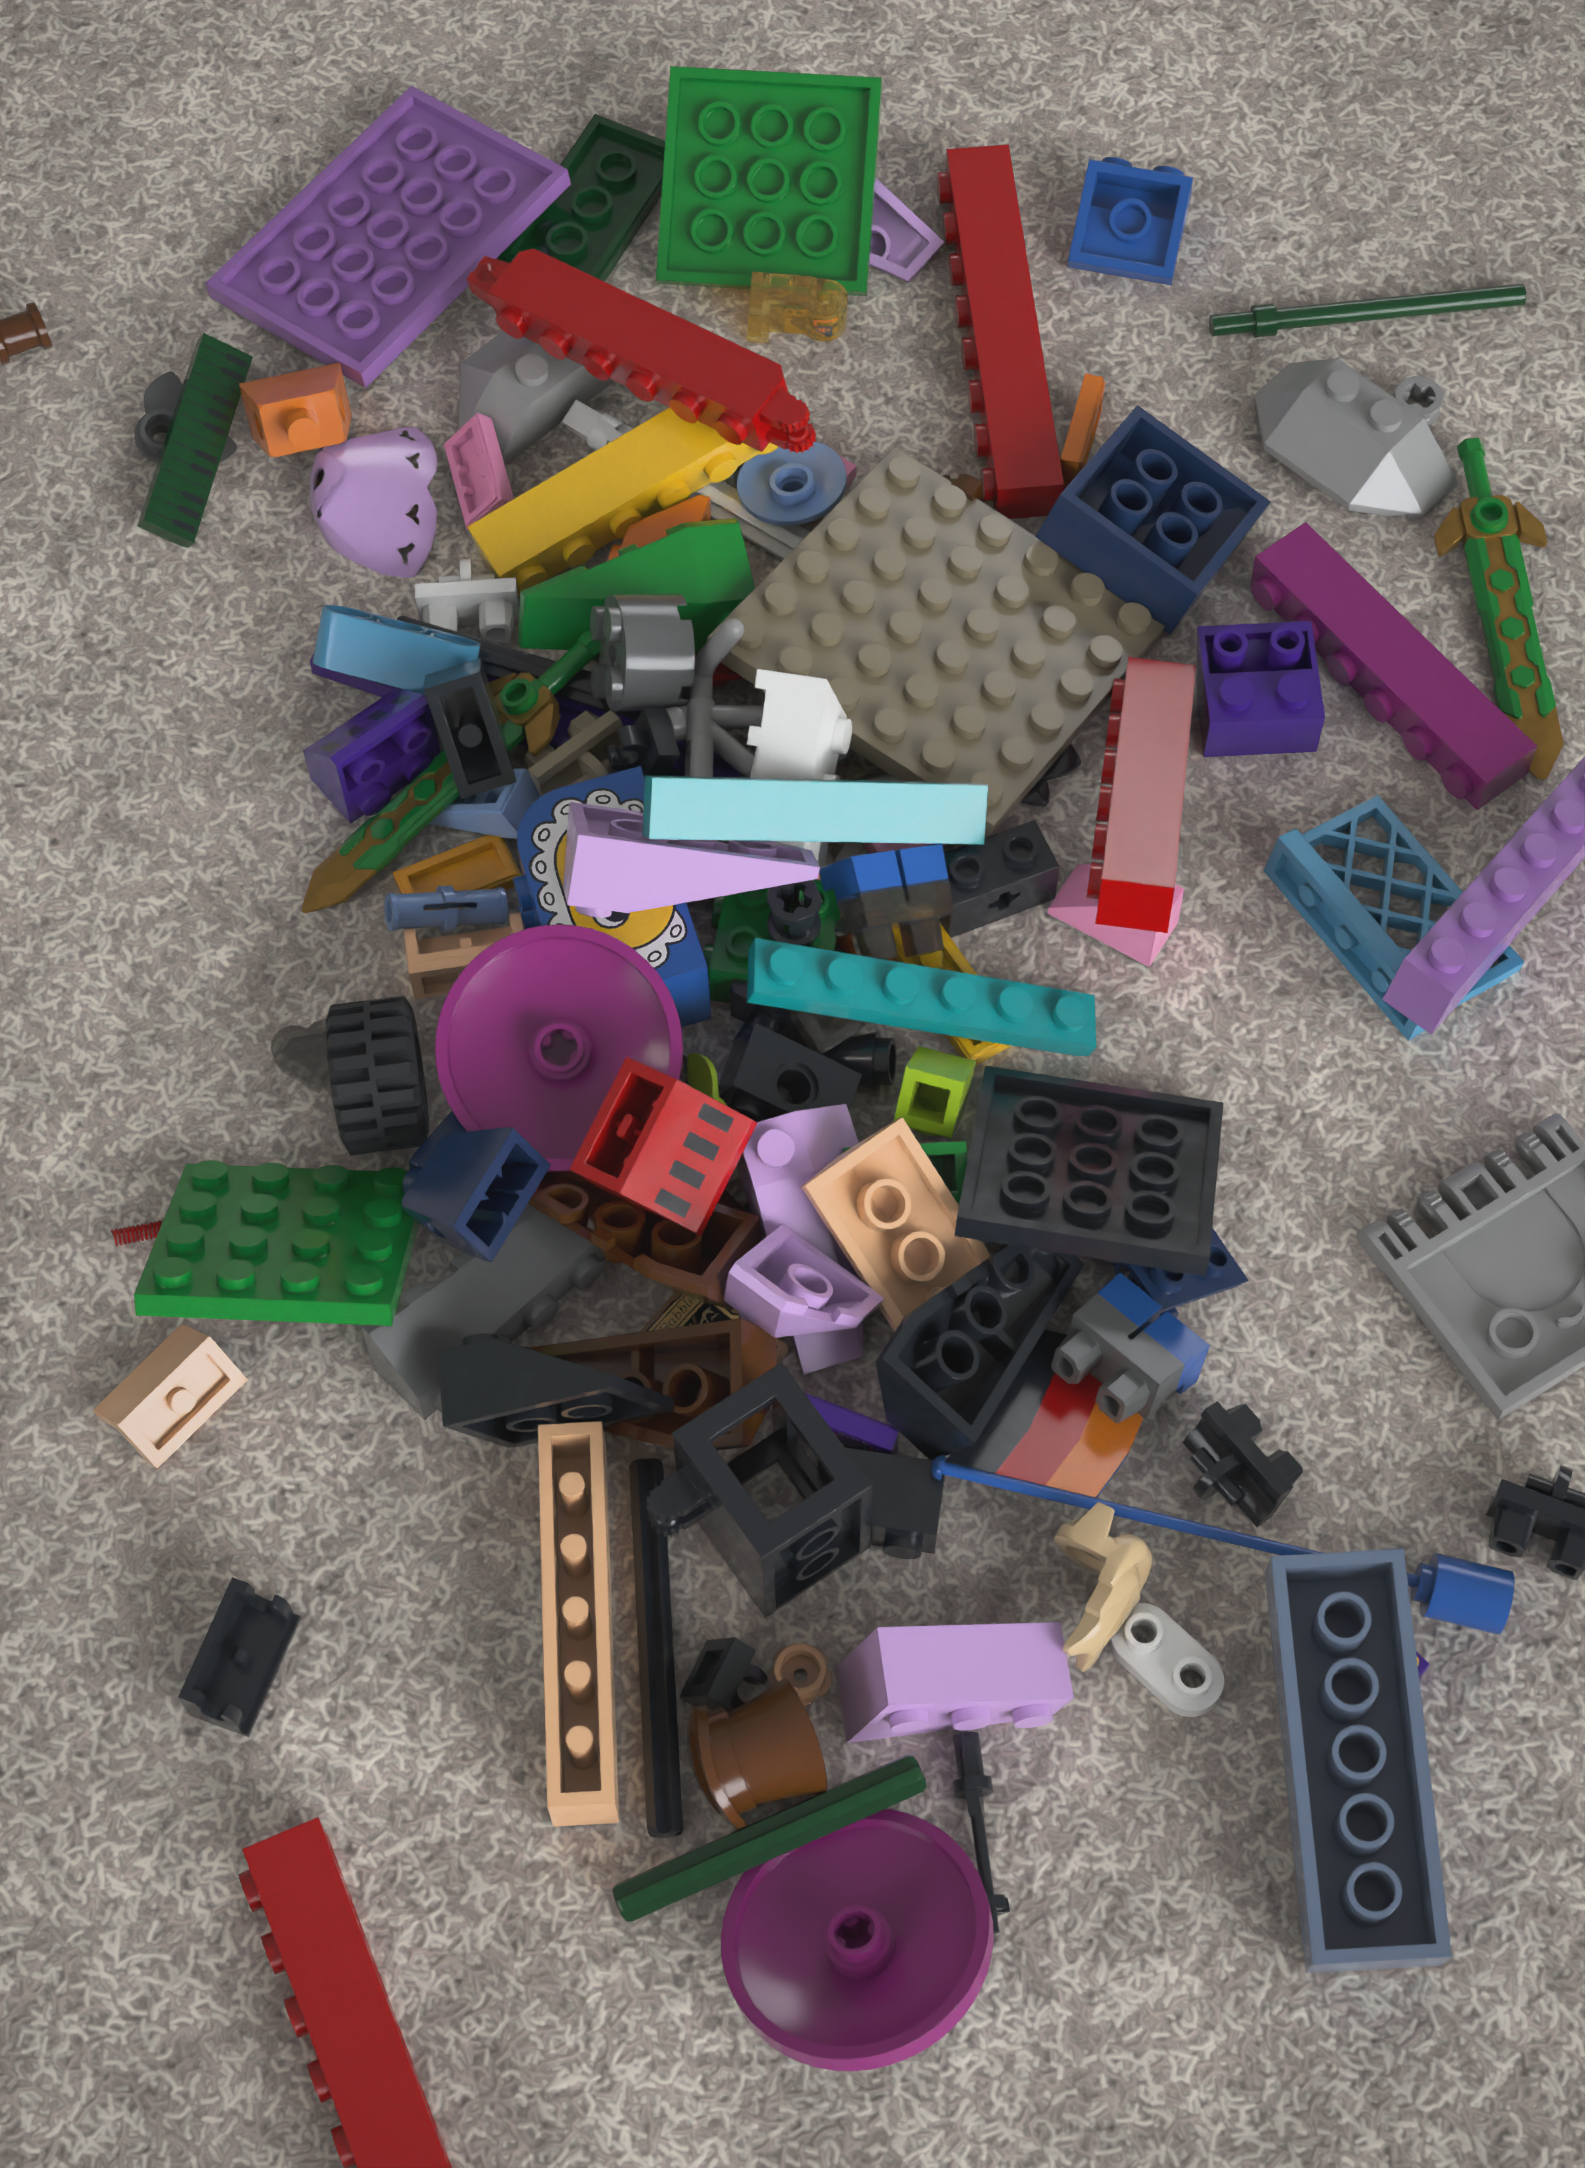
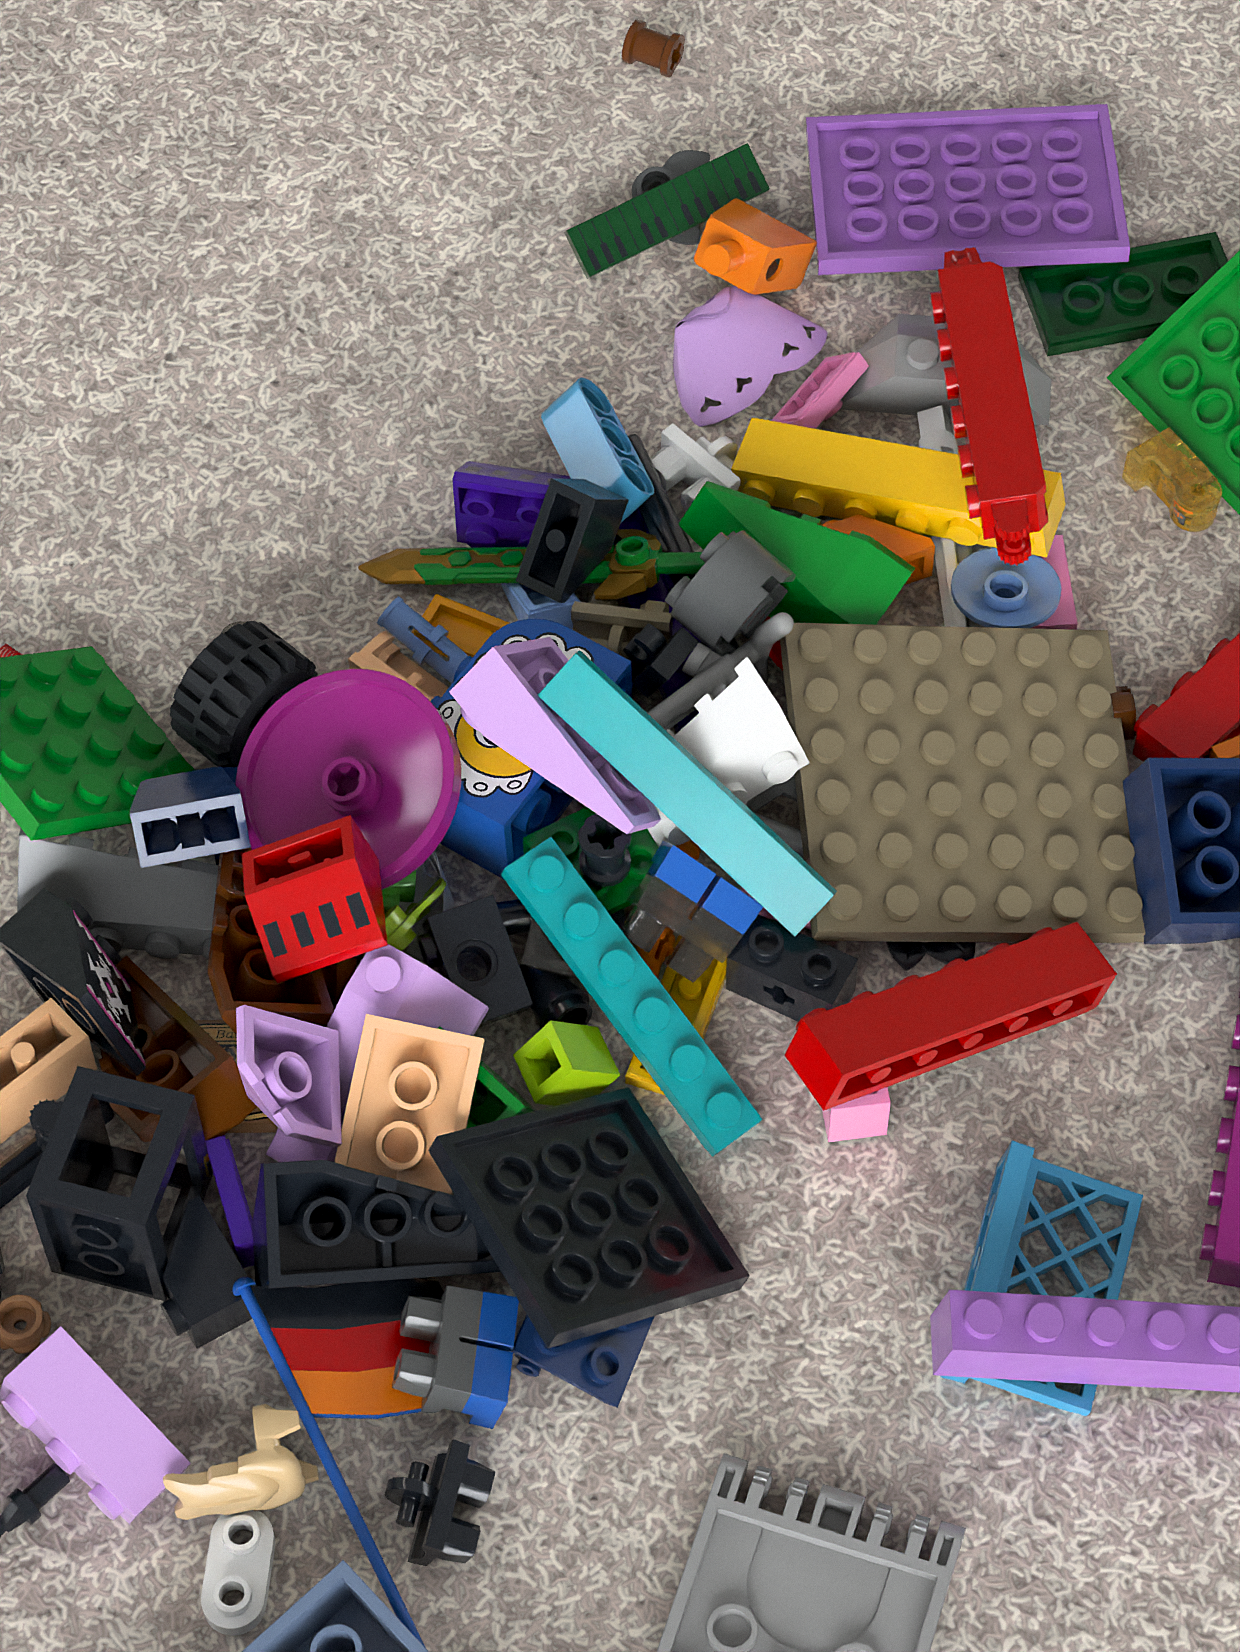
camera: 50 degrees right, 5 degrees down
(1258, 689) = (1145, 1035): dark purple slope -> none

